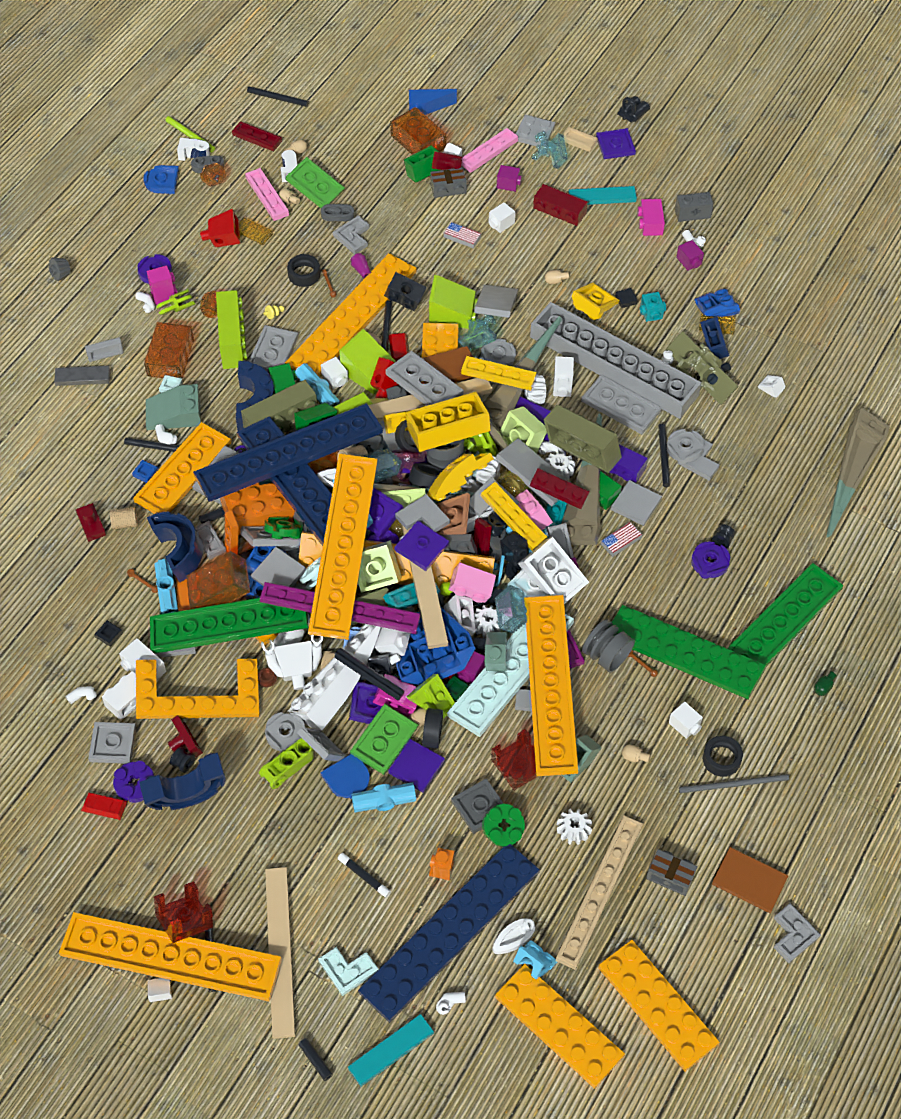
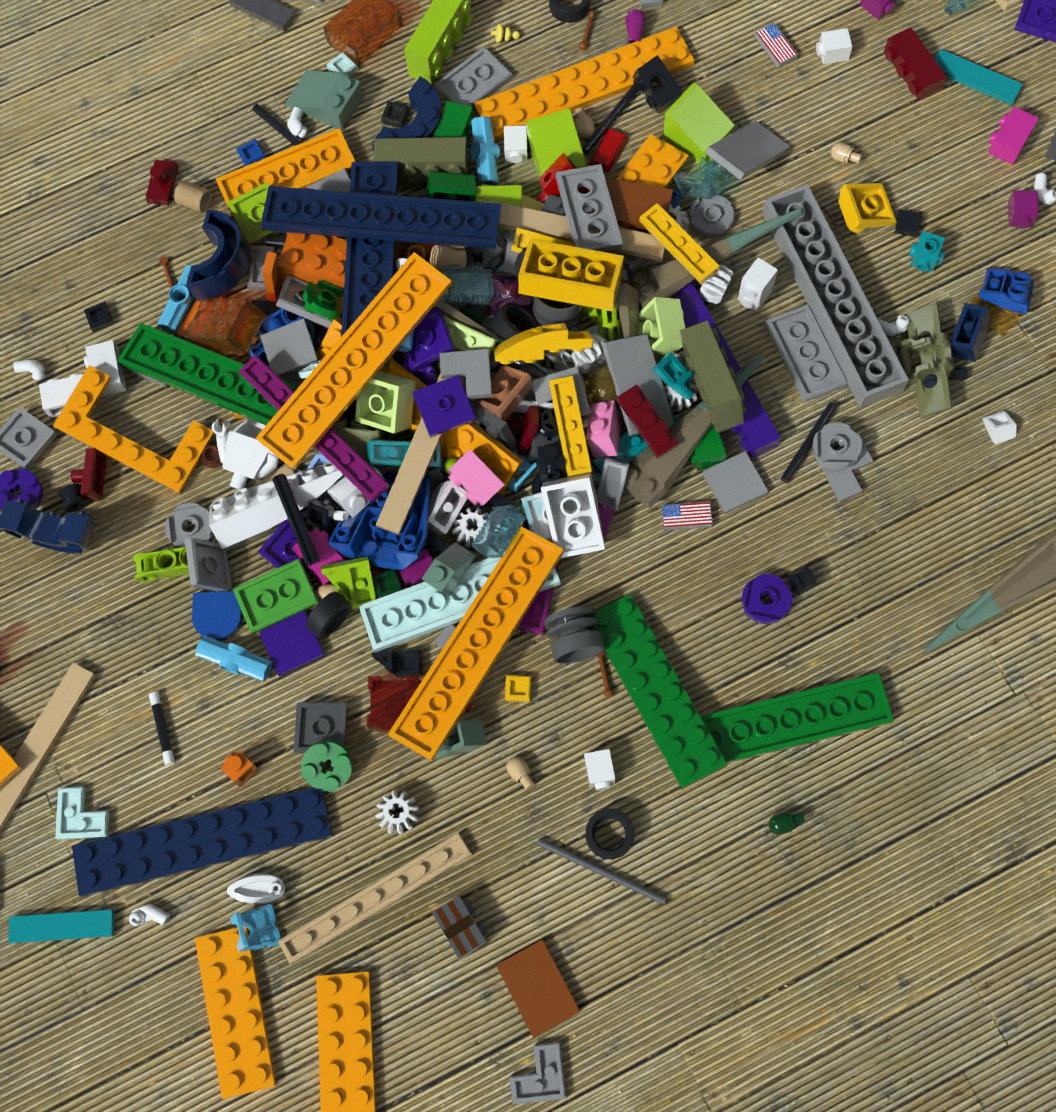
camera: 40 degrees right, 15 degrees up
(184, 500) = (249, 211): none -> lime plate
(232, 396) = (395, 114): none -> pearl dark grey tile
(502, 734) = (401, 663): none -> black slope
(553, 455) = (674, 375): none -> teal slope
(593, 704) = (518, 688): none -> yellow tile

